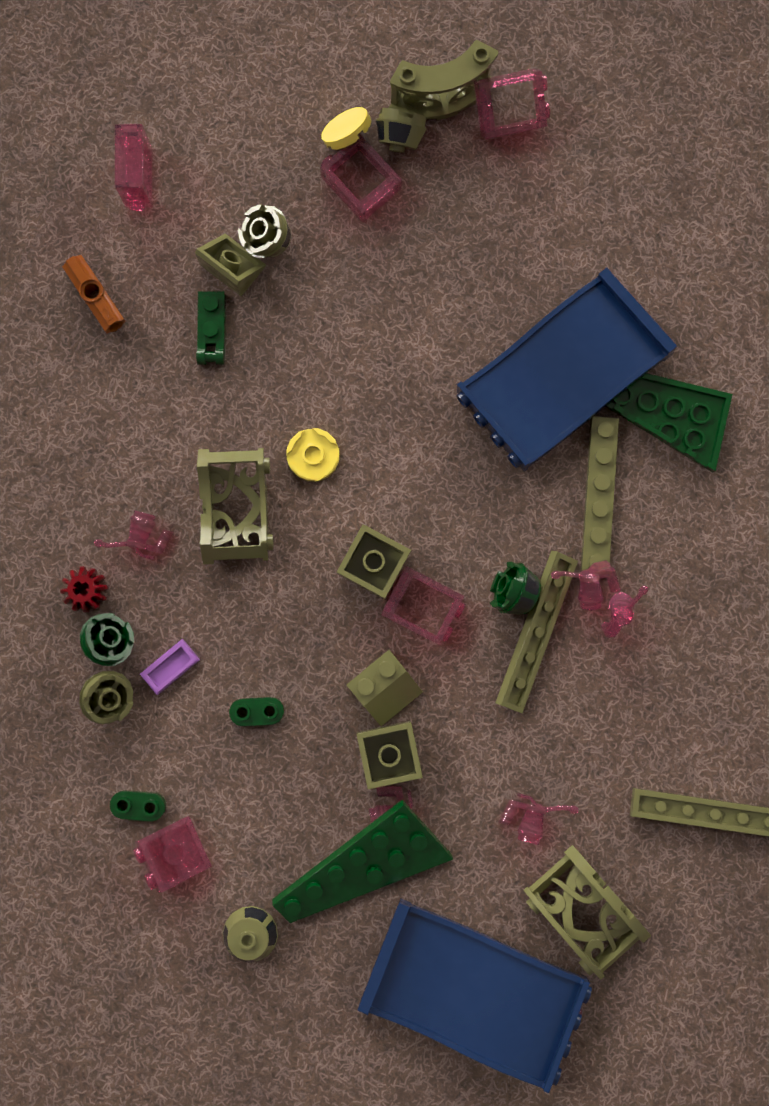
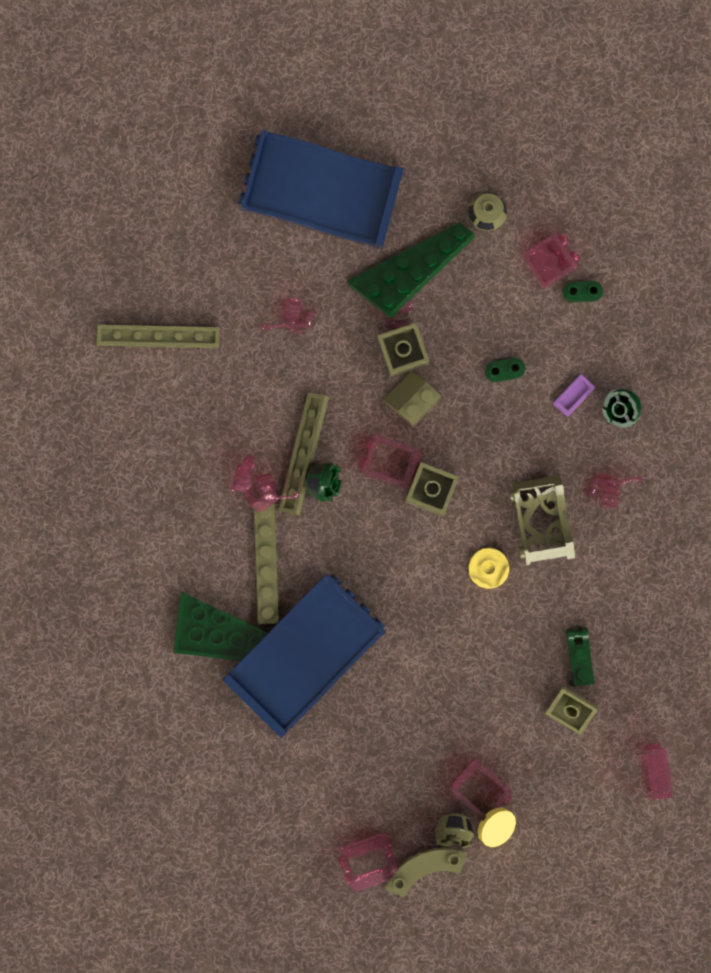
camera: 175 degrees right, 0 degrees up
(73, 590) = (645, 451): dark red gear -> none
(85, 283) = (683, 681): dark orange piece -> none
(106, 697) = (616, 366): olive cone -> none
(264, 232) = (548, 733): olive cone -> none
(625, 927) = (252, 281): olive fence -> none

